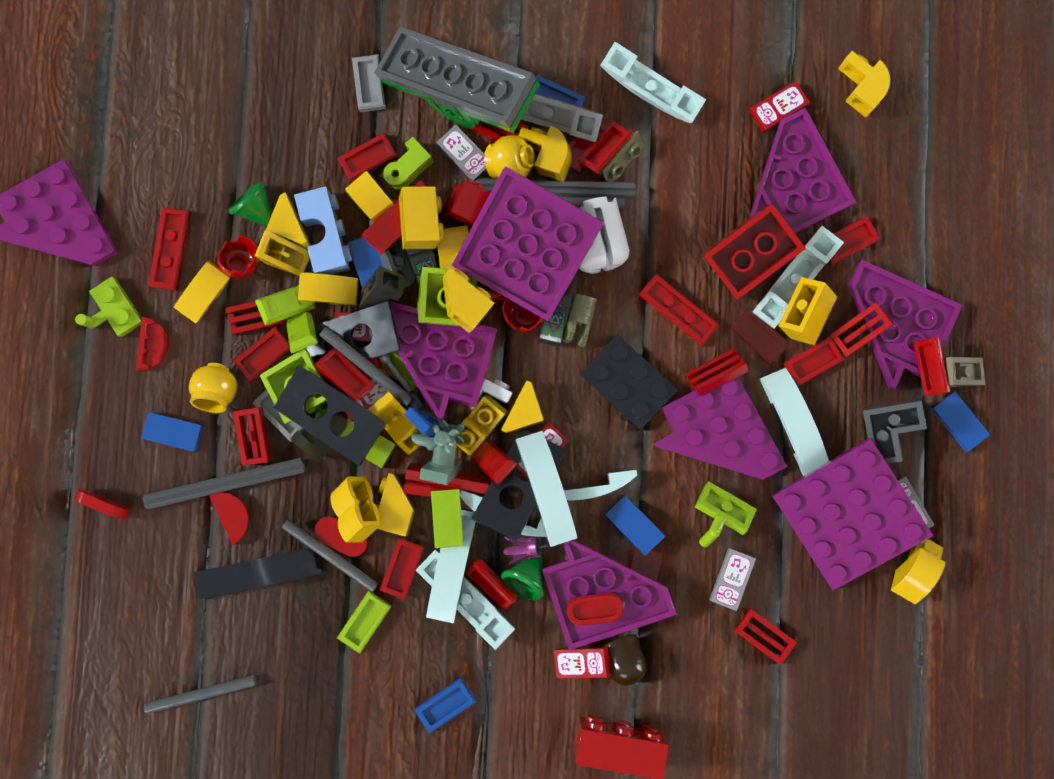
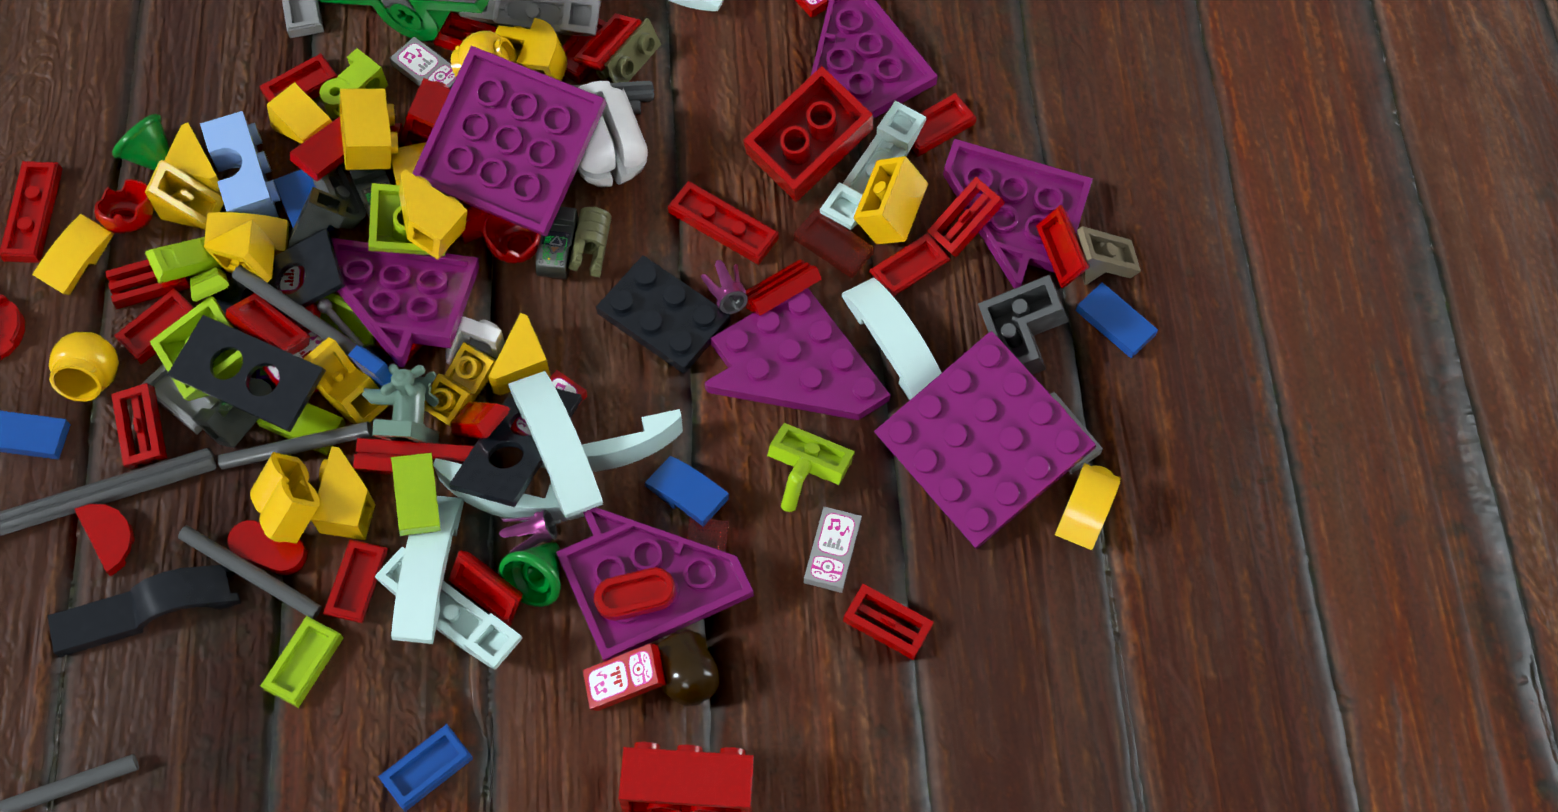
camera: 10 degrees left, 20 degrees down
(330, 310) = (244, 246): none -> yellow slope
(368, 464) = (295, 445): none -> dark grey bar
(682, 375) = (732, 294): none -> flat silver piece

